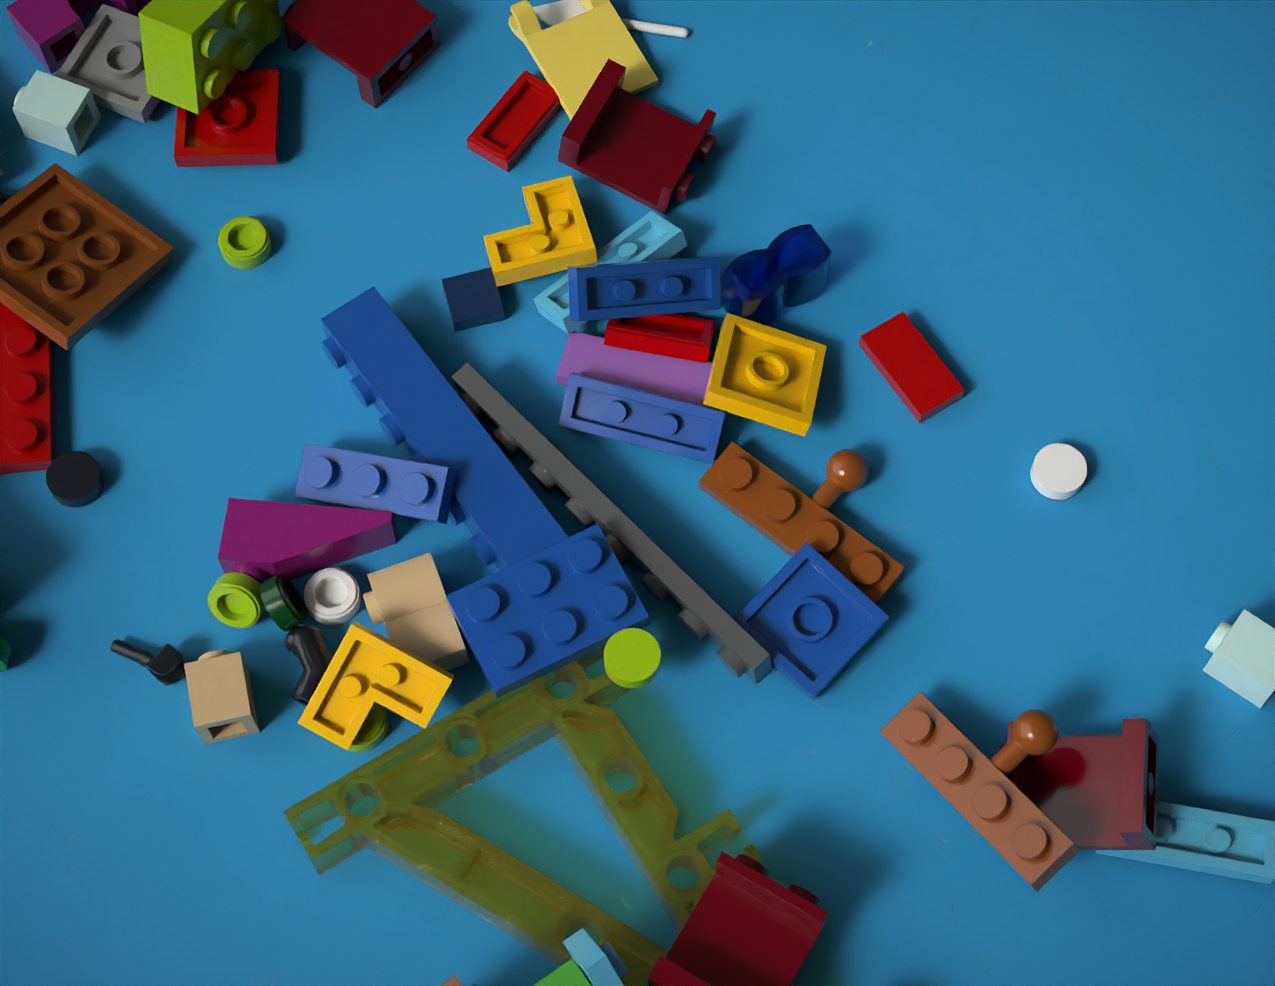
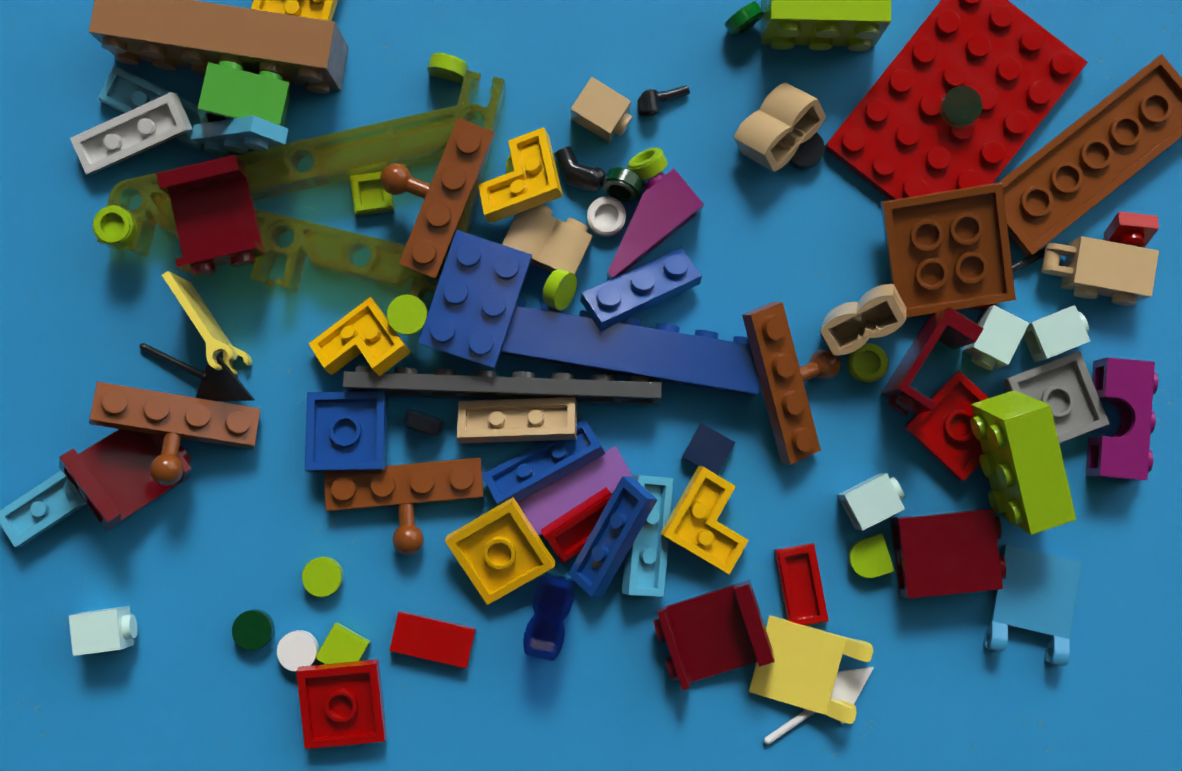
camera: 130 degrees right, 20 degrees up
(74, 509) = (779, 126): none -> tan brick
(111, 154) = (998, 339): none -> light aqua brick
(194, 188) = (947, 327): none -> dark red panel
(205, 261) = (853, 323): none -> tan brick
(327, 900) = (447, 67): none -> lime tile
(335, 283) = (784, 380): none -> dark orange plate
(376, 123) = (872, 501): none -> light aqua brick
(429, 89) = (870, 557): none -> lime tile
(455, 546) = (559, 289): none -> lime tile
(474, 741) = (443, 198): none -> dark orange plate
(545, 844) = (369, 195): none -> lime tile
(626, 477) = (517, 420): none -> tan plate
(694, 705) = (358, 332): none -> yellow plate
(721, 562) = (423, 422): none -> black tile
(857, 822) = (205, 323): none -> light yellow flag
(904, 801) = (214, 385): none -> black piece
(968, 516) = (322, 576): none -> lime tile
(1010, 434) = (342, 646): none -> lime tile
(1057, 380) = (341, 704): none -> red plate
(1087, 529) = (253, 629): none -> dark green tile

